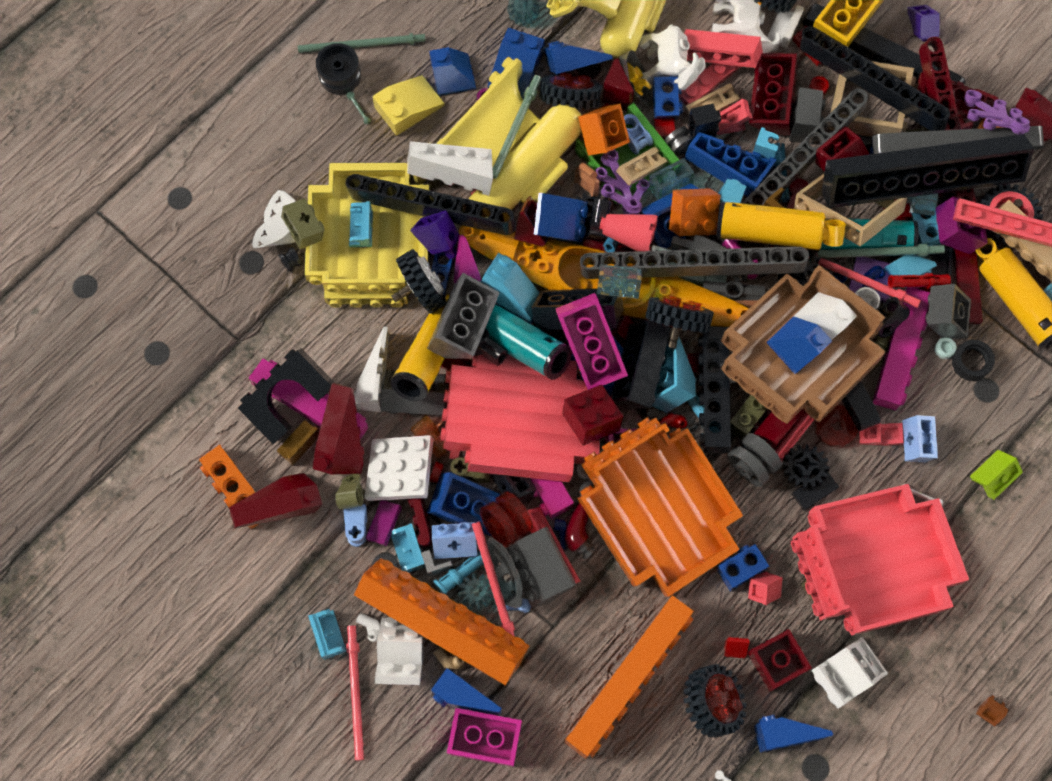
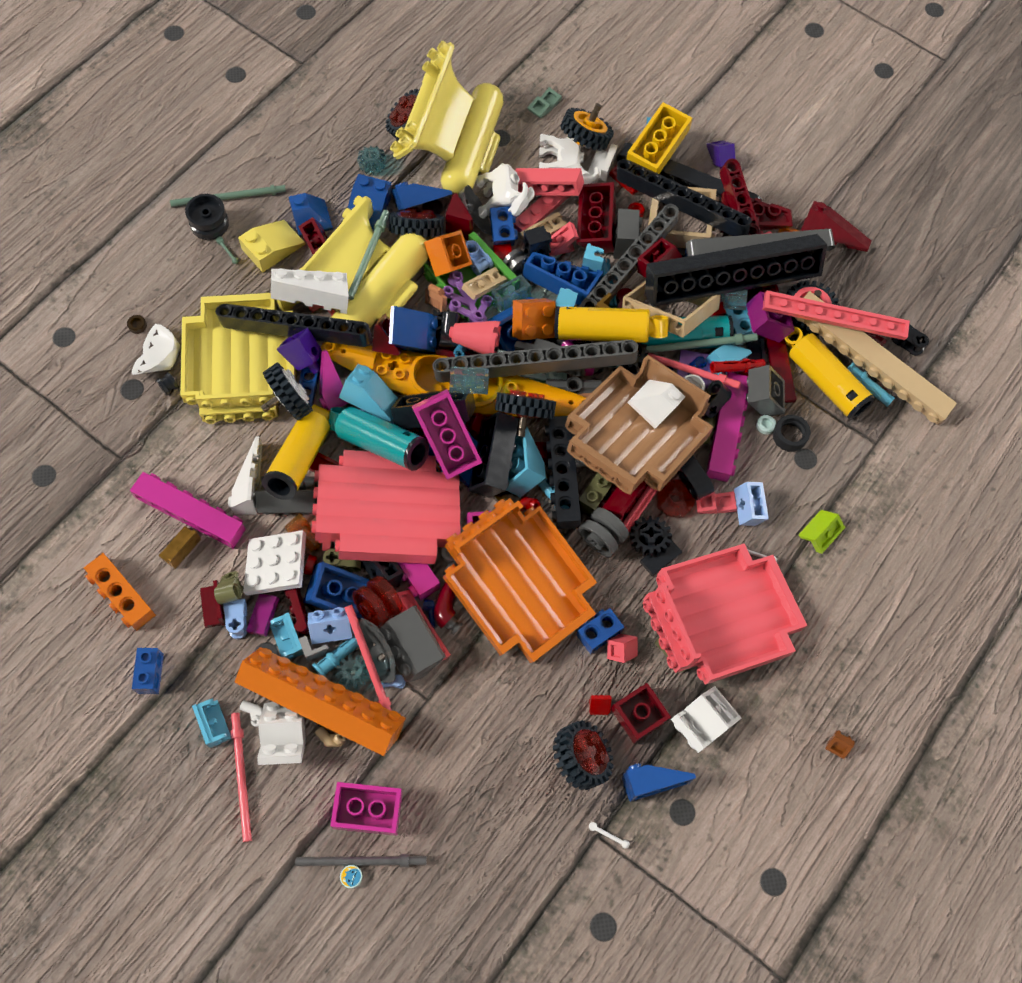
camera: 10 degrees left, 5 degrees down
(258, 188) = (137, 324): none -> dark brown tile
(259, 405) = (139, 513): black arch -> none
(262, 574) = (147, 671): none -> blue brick
(280, 500) = (163, 600): dark red wedge -> none
(302, 223) = (176, 348): olive brick -> none
(331, 515) = (212, 611): none -> dark red panel
(338, 441) = (216, 540): dark red wedge -> none
(361, 224) = (232, 348): medium azure hinge -> none
(456, 99) = (313, 234): none -> dark red brick
(457, 693) = (337, 767): blue slope -> none
(463, 319) = (327, 421): flat silver slope -> none
(491, 349) = (346, 444): black piece -> none
(592, 414) = (451, 500): dark red brick -> none
(632, 673) = (498, 744): orange brick -> none
(635, 77) = (473, 208): yellow plate -> none
(798, 343) = (635, 423): blue slope -> none
(1014, 121) = (790, 222): medium lavender plant -> none

